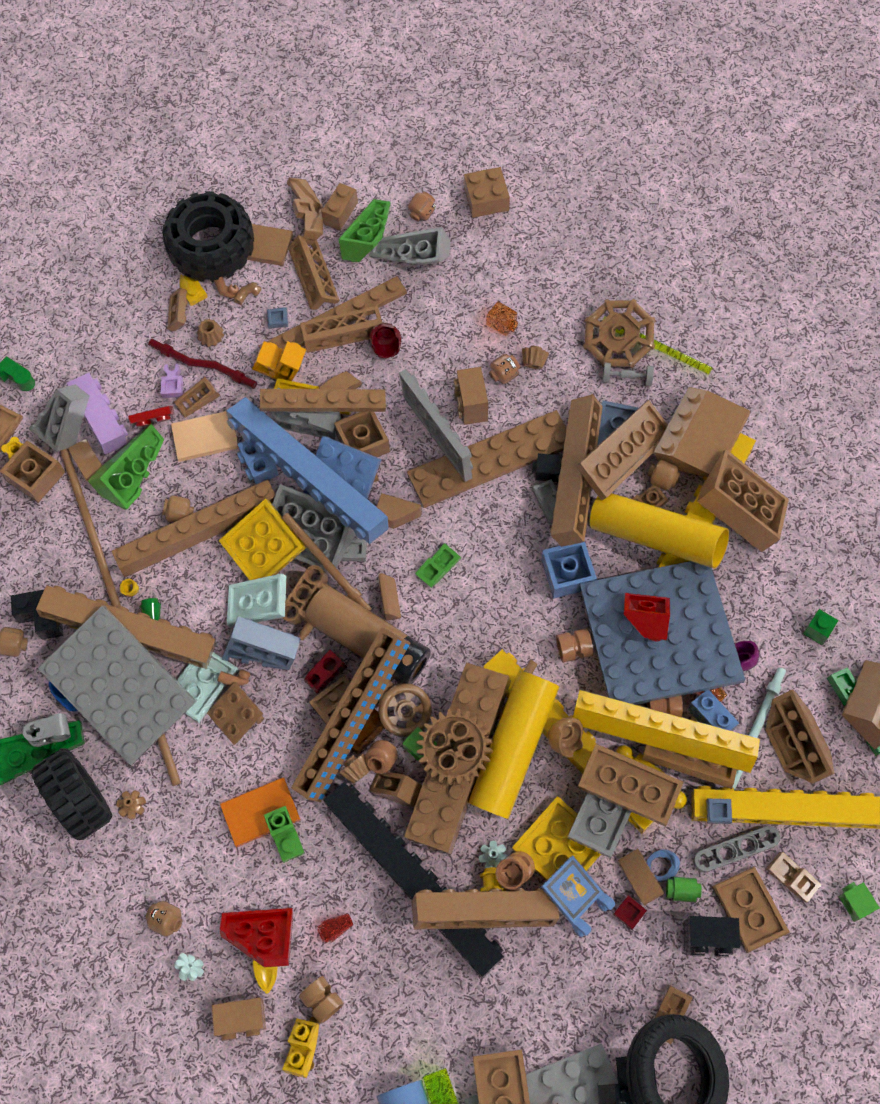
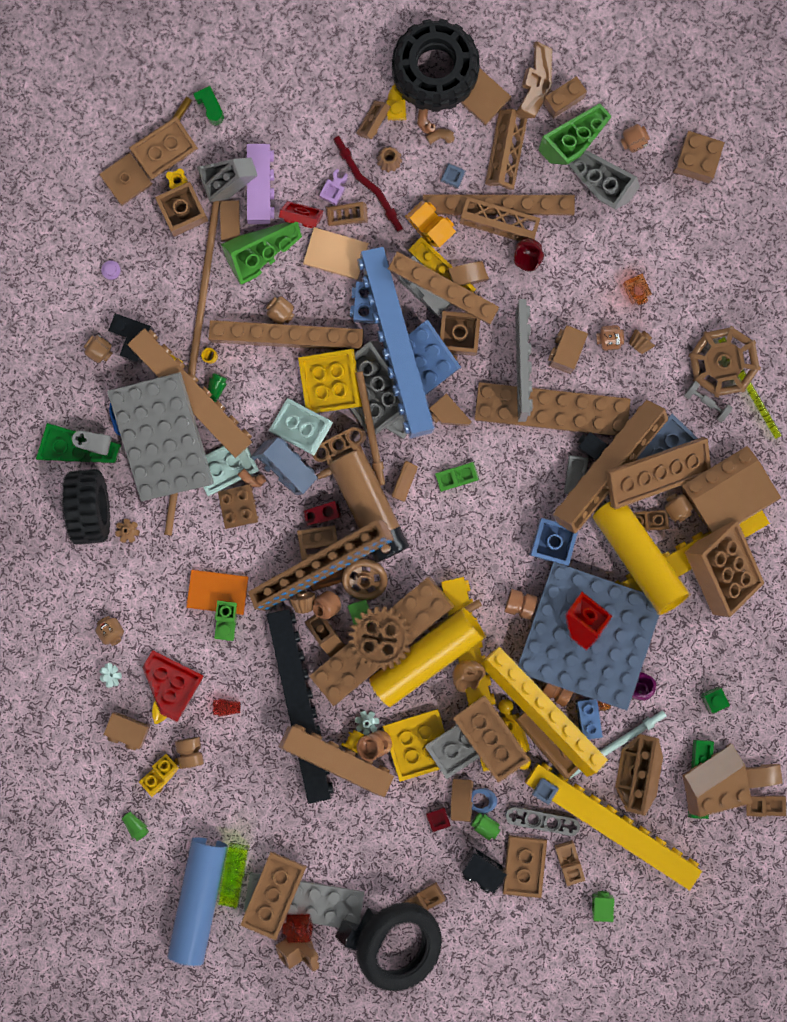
camera: 30 degrees right, 20 degrees up
(574, 893) = (406, 784): medium blue flag -> none

